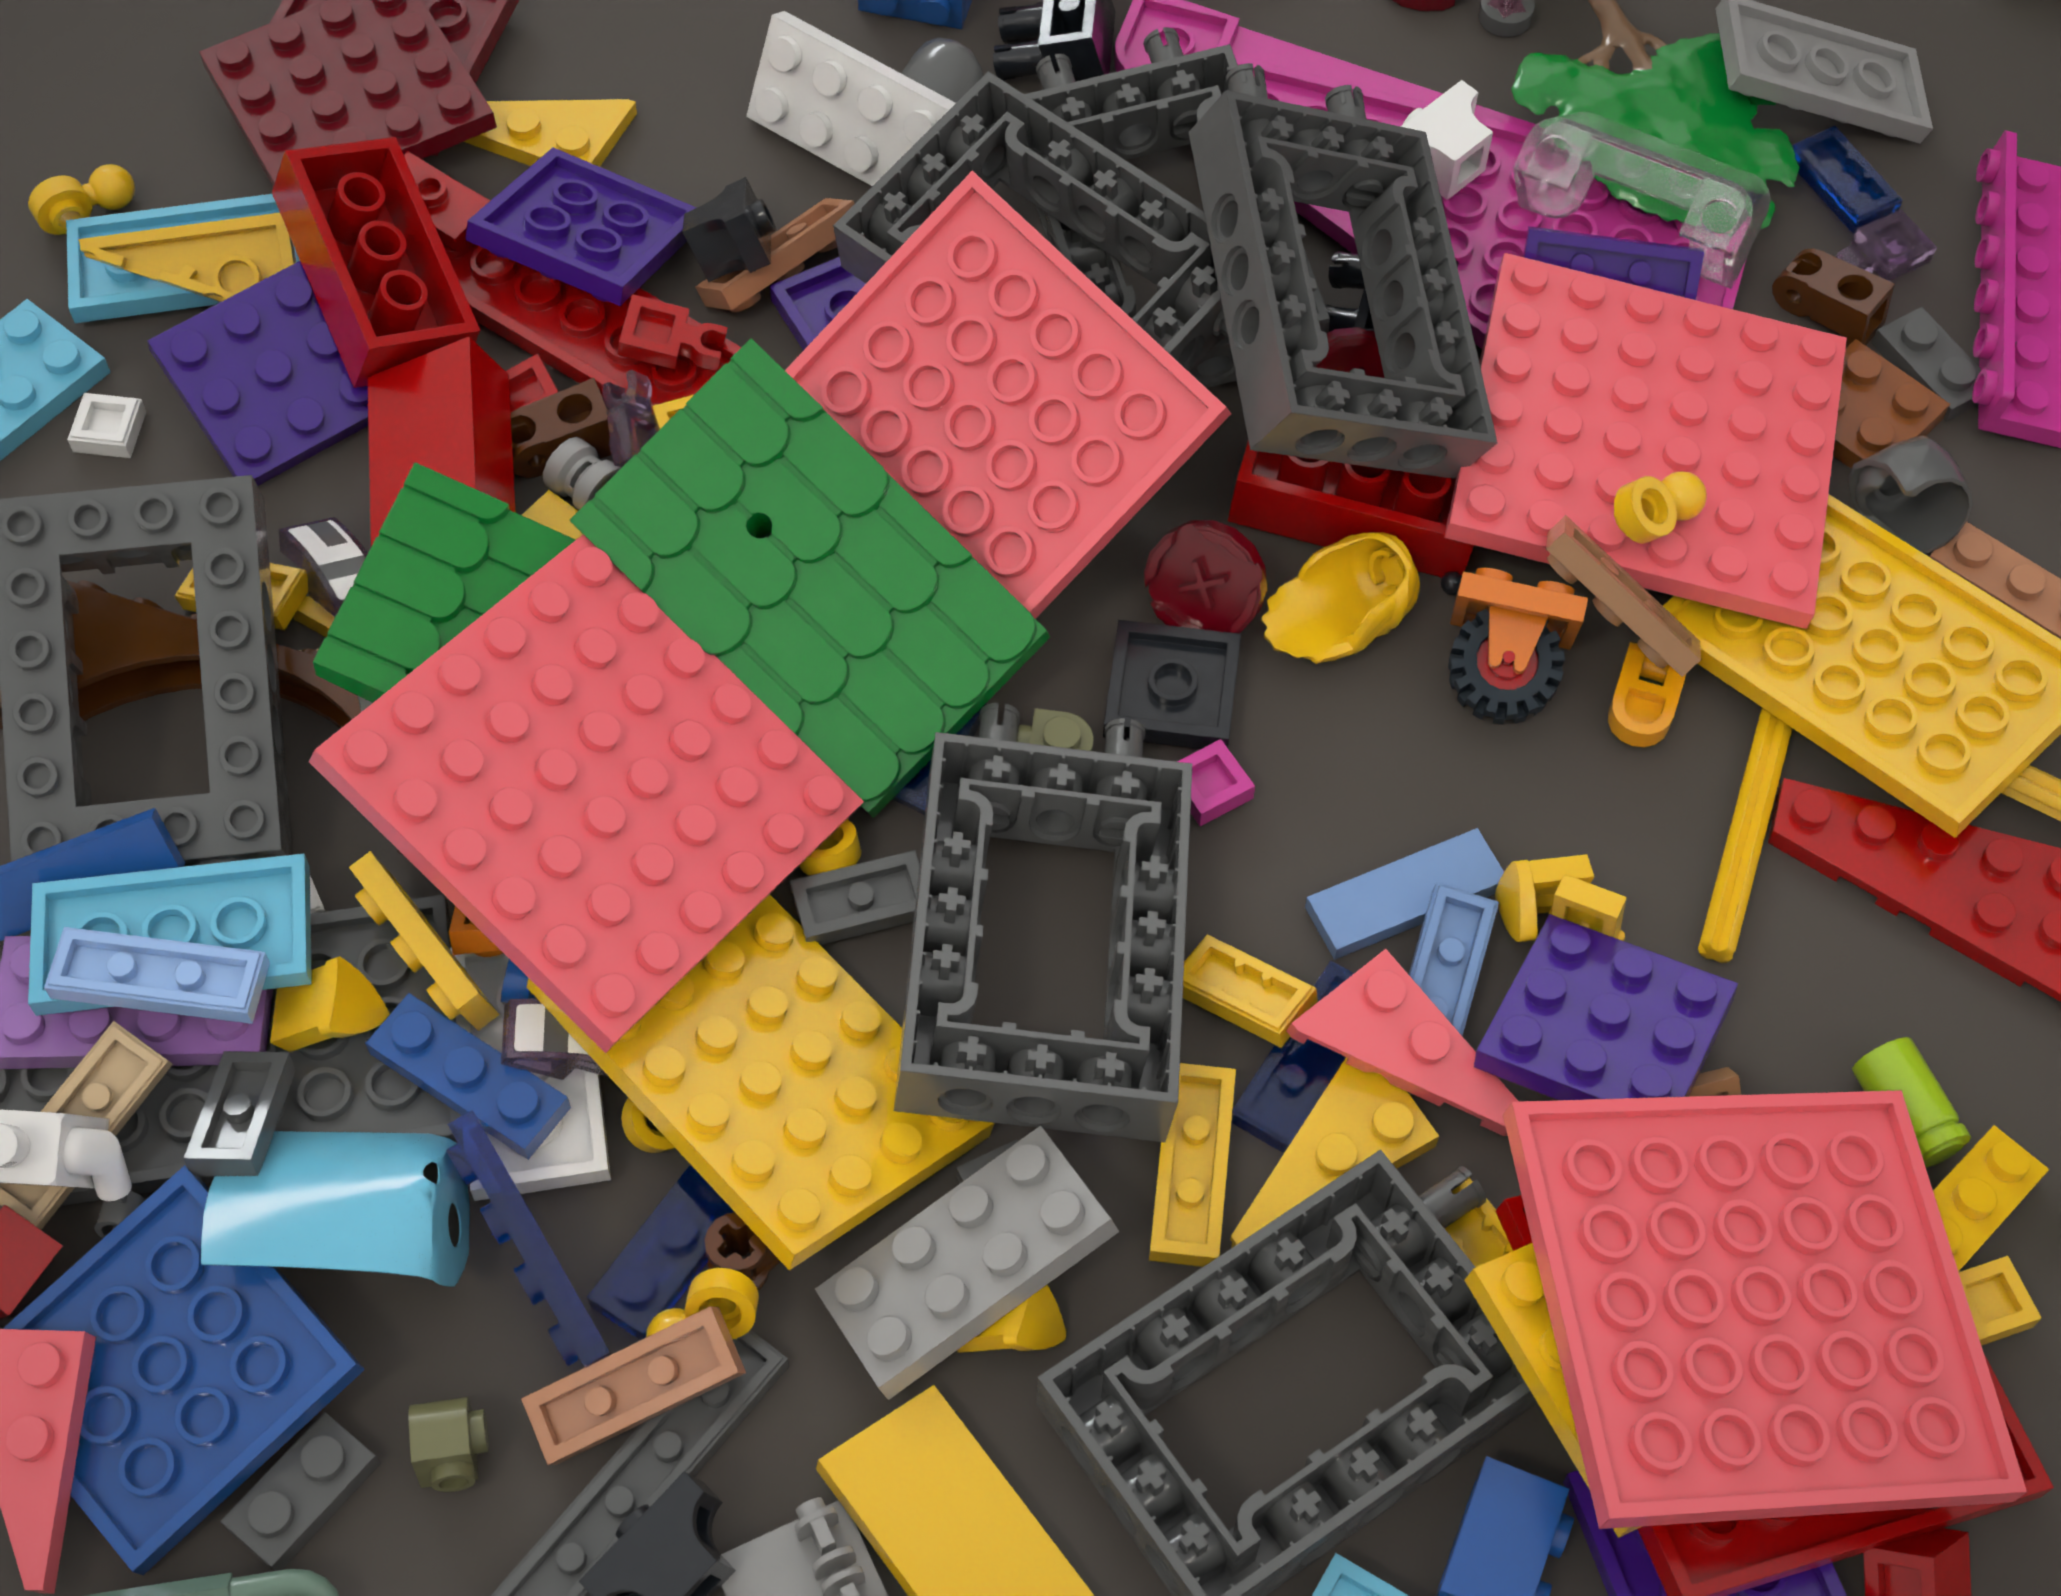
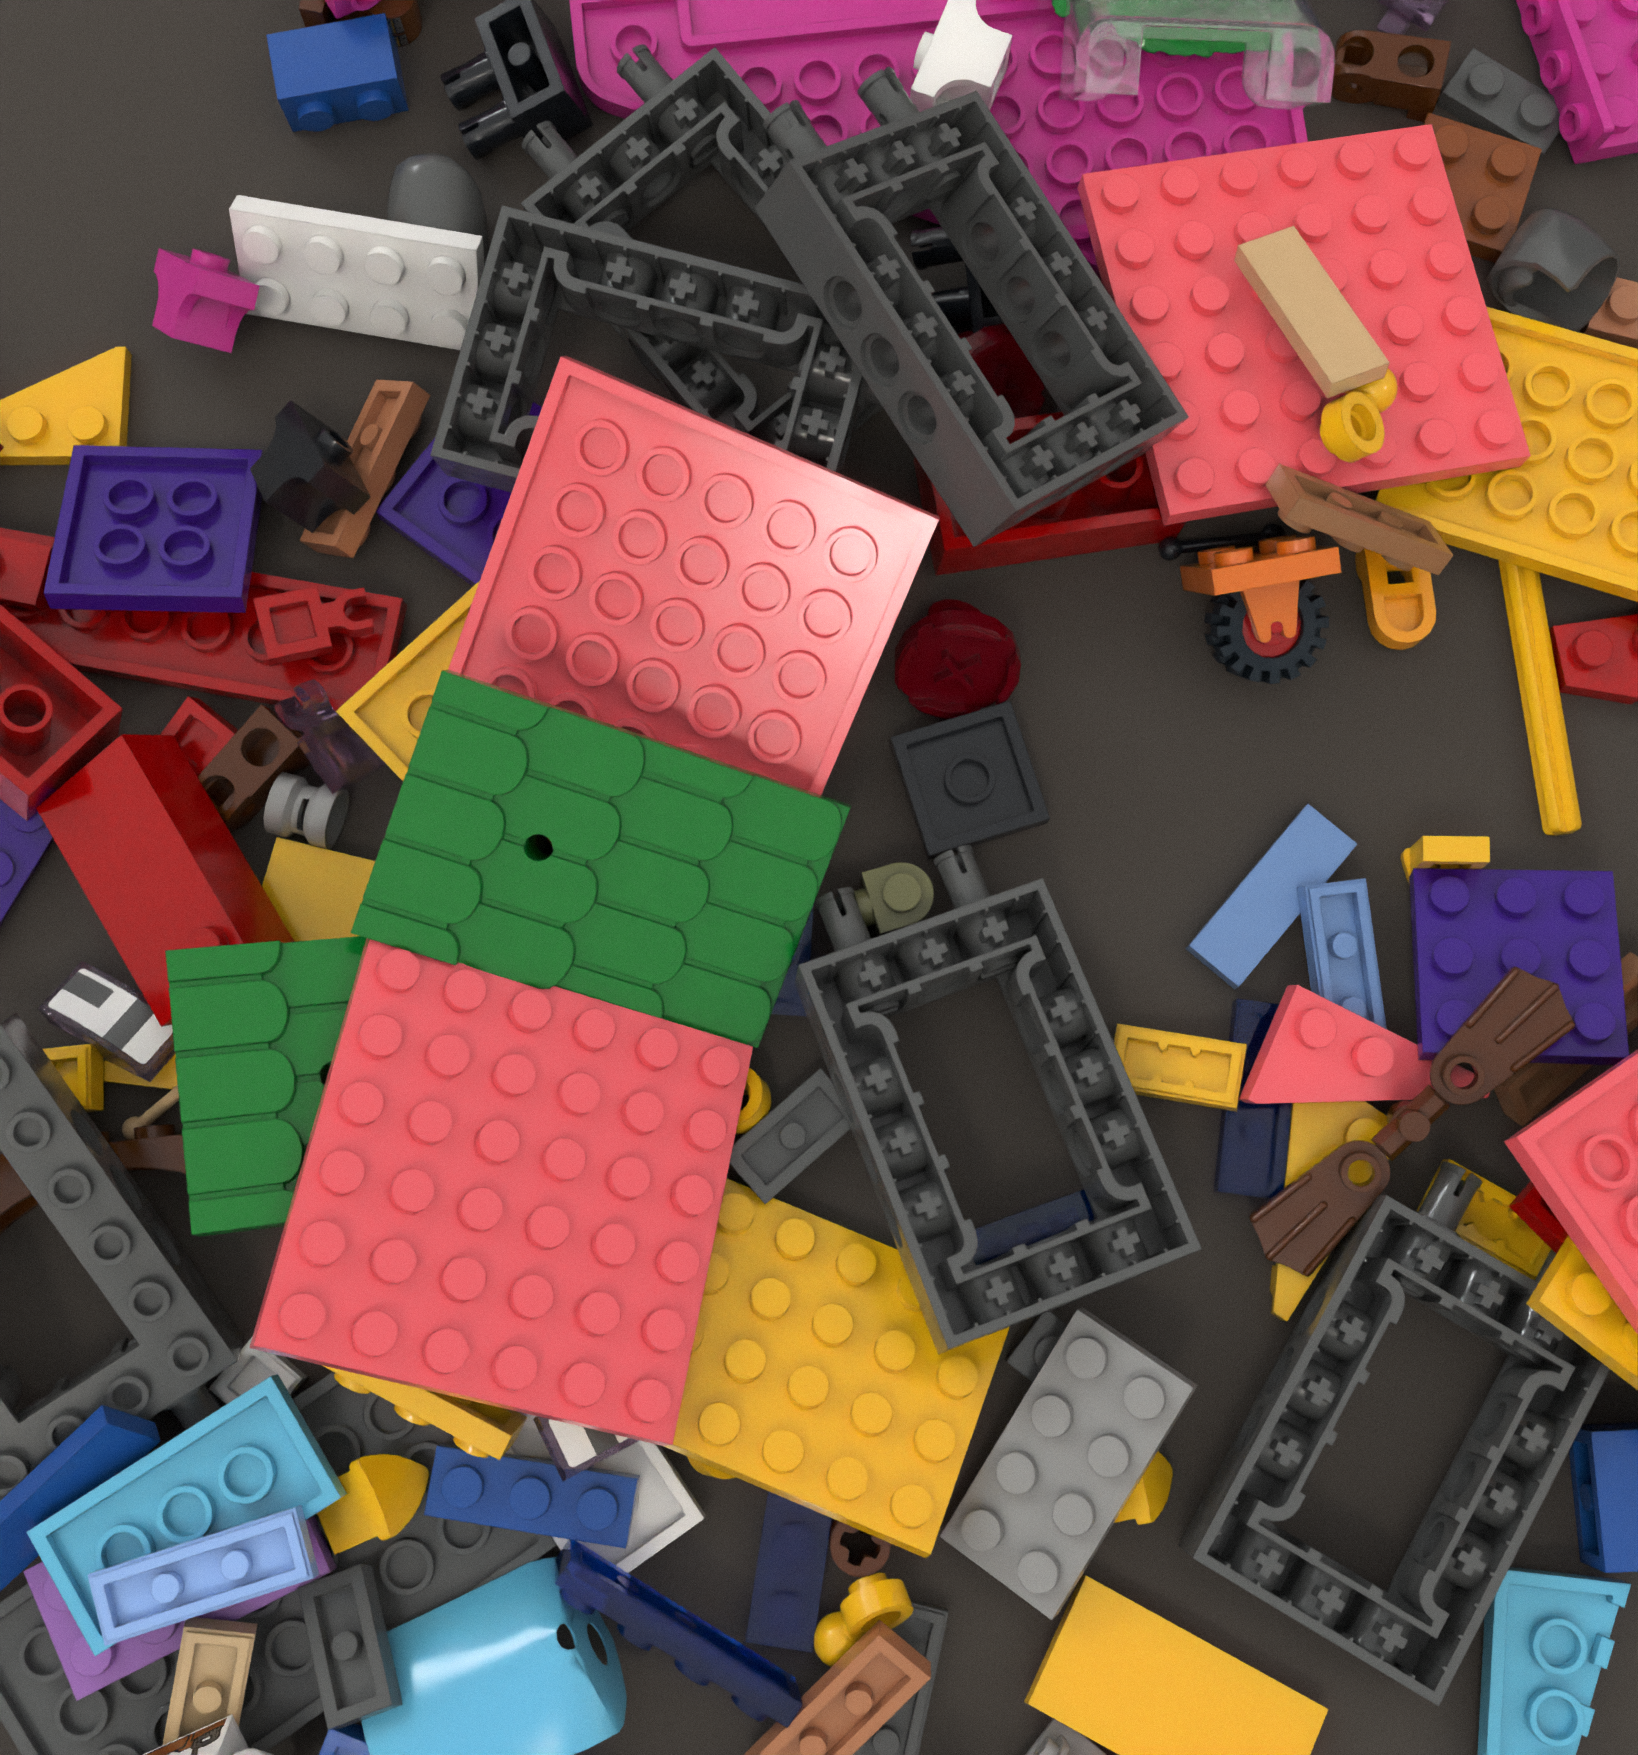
camera: 25 degrees left, 20 degrees up
(715, 82) = (201, 298): none -> dark pink brick
(1194, 1169) = (1218, 1275): yellow plate -> none
(1217, 783) = (1053, 859): dark pink plate -> none
(1343, 598) = (1087, 622): yellow hair -> none
(1530, 889) = (1380, 860): yellow tile -> none
(1549, 1059) = (1497, 1039): none -> reddish brown piece
(1635, 262) = (1191, 131): dark purple plate -> none
(1650, 412) = (1311, 312): none -> tan tile

